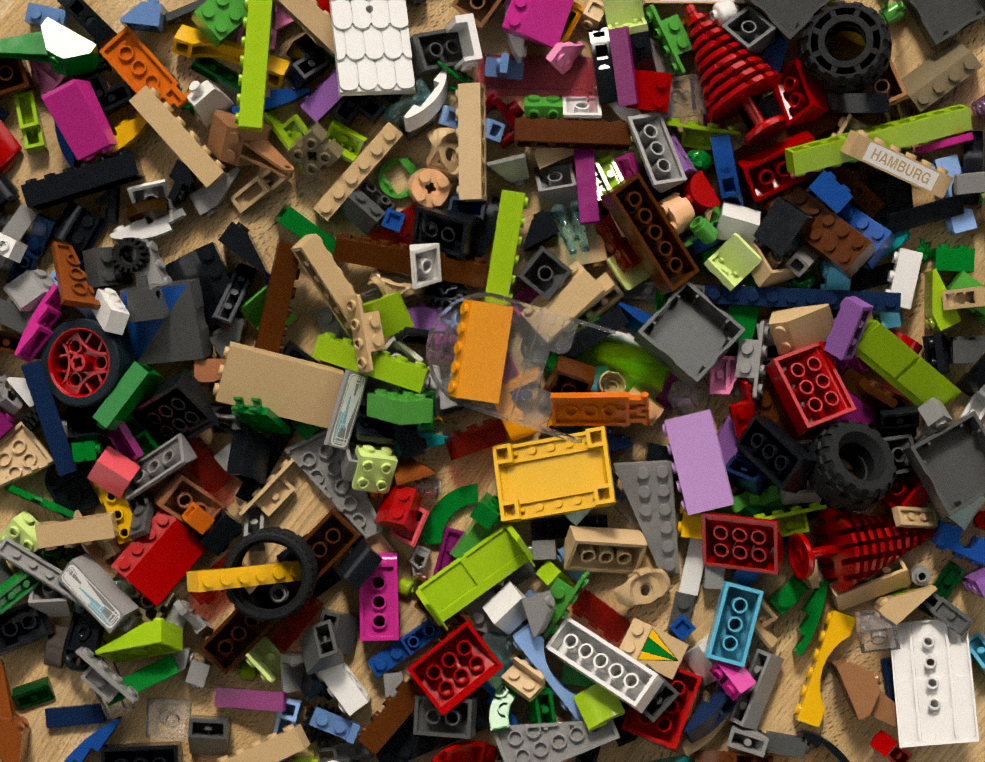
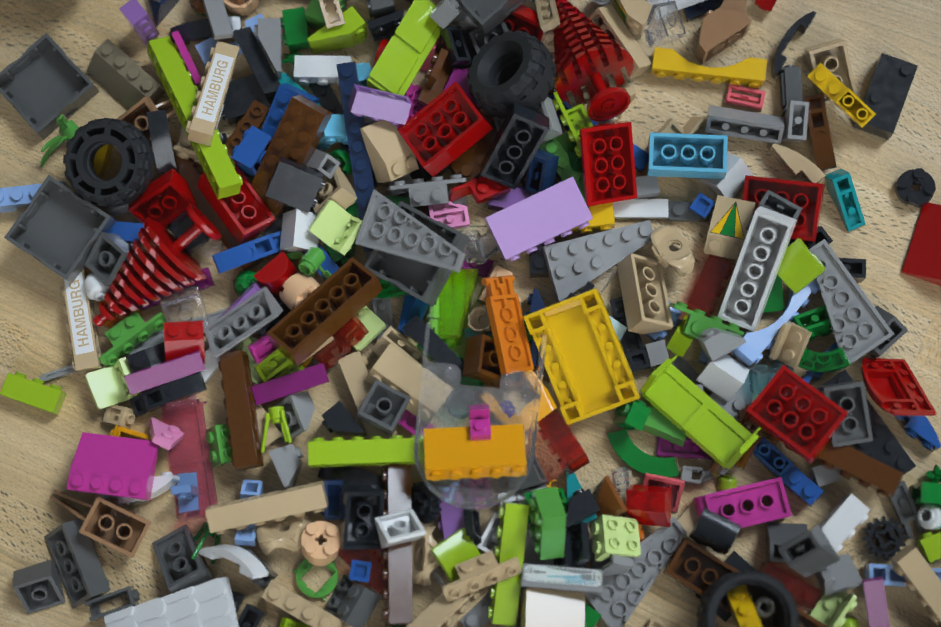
camera: 95 degrees left, 10 degrees down
(312, 686) = (849, 555): black slope -> none
(335, 724) = (881, 523): medium blue bracket -> none
(399, 109) = (242, 583): clear light blue piece -> none
(468, 39) = (165, 532): white panel -> none
(508, 111) = (231, 477): dark red connector -> none
(508, 362) = (480, 422): none -> dark pink slope
(559, 167) = (277, 416): none -> lime plant
(570, 234) = (336, 384): clear light blue piece -> none
(579, 108) = (214, 409): white slope -> none
(699, 136) = (221, 287): lime bracket -> none
(709, 715) = (779, 159): dark blue slope -> none
(710, 322) = (400, 234): none -> light grey wing
(732, 678) = (741, 145): dark pink slope -> none
(787, 594) = (647, 115): green slope -> none
(792, 682) = (728, 100): none -> coral tile
(813, 608) = (656, 87): green slope -> none
(946, 231) = (270, 40): none -> light grey slope

